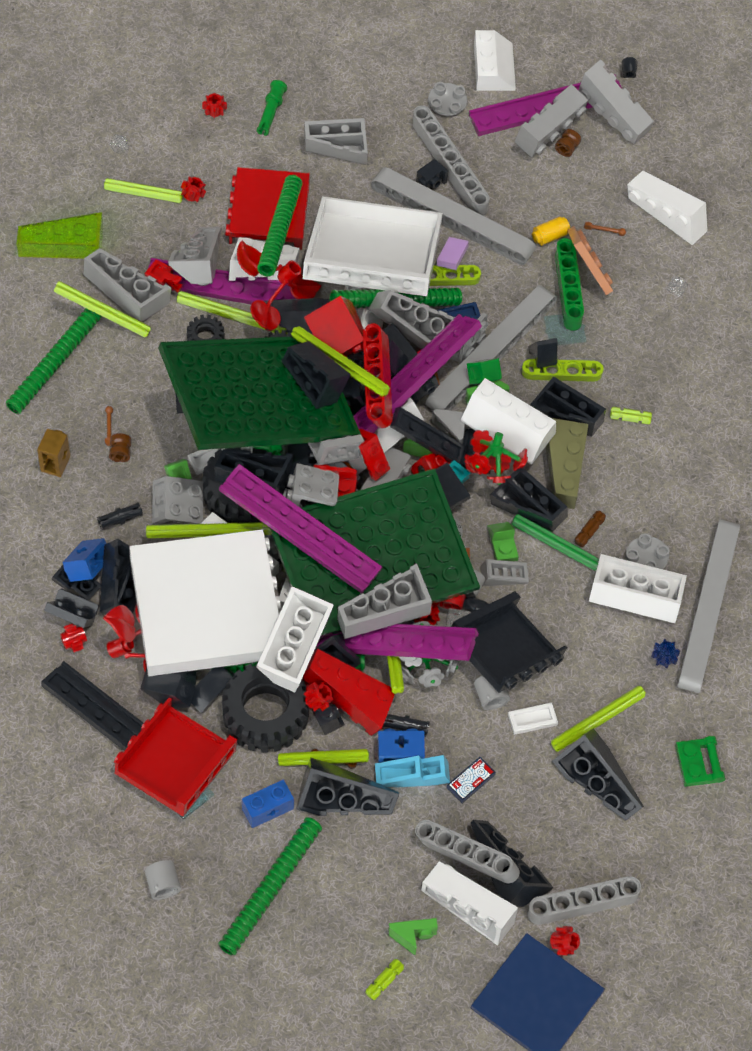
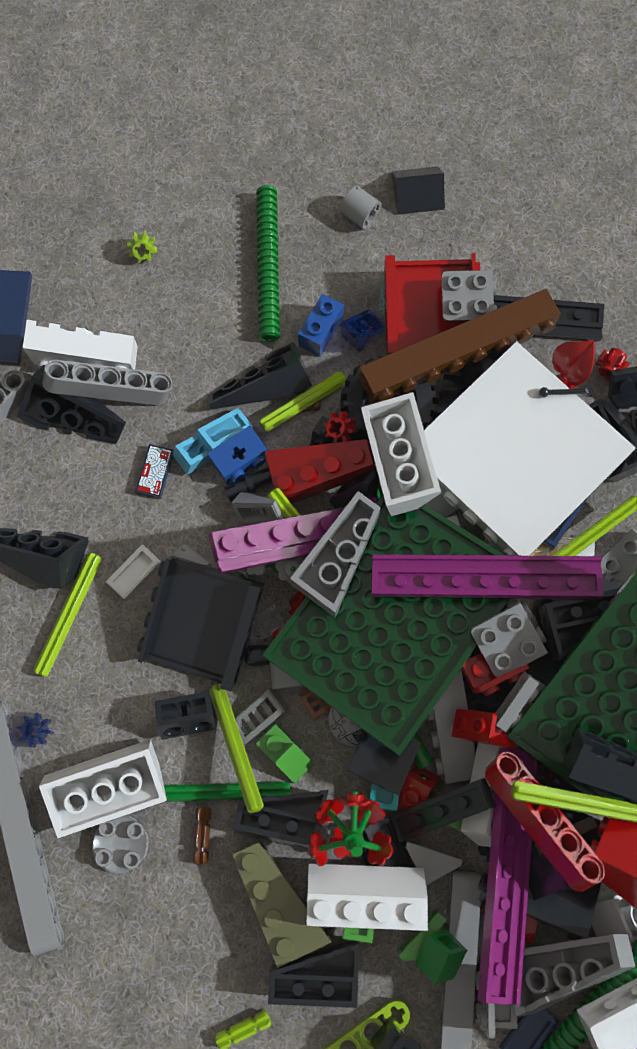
camera: 150 degrees right, 15 degrees up
(98, 873) = (419, 190): none -> black slope
(129, 600) = (588, 391): none -> black hinge
(145, 736) = (467, 294): none -> light grey bracket
(188, 695) = (459, 346): none -> reddish brown brick
(237, 780) = (360, 328): none -> clear blue slope
(364, 963) = (145, 253): none -> lime gear
(384, 979) = (118, 250): lime axle -> none
(406, 932) = (122, 296): bright green slope -> none
(418, 697) = (255, 509): none -> light grey slope
(534, 555) = (236, 749): none -> lime axle
(555, 596) = (184, 715): none -> black brick

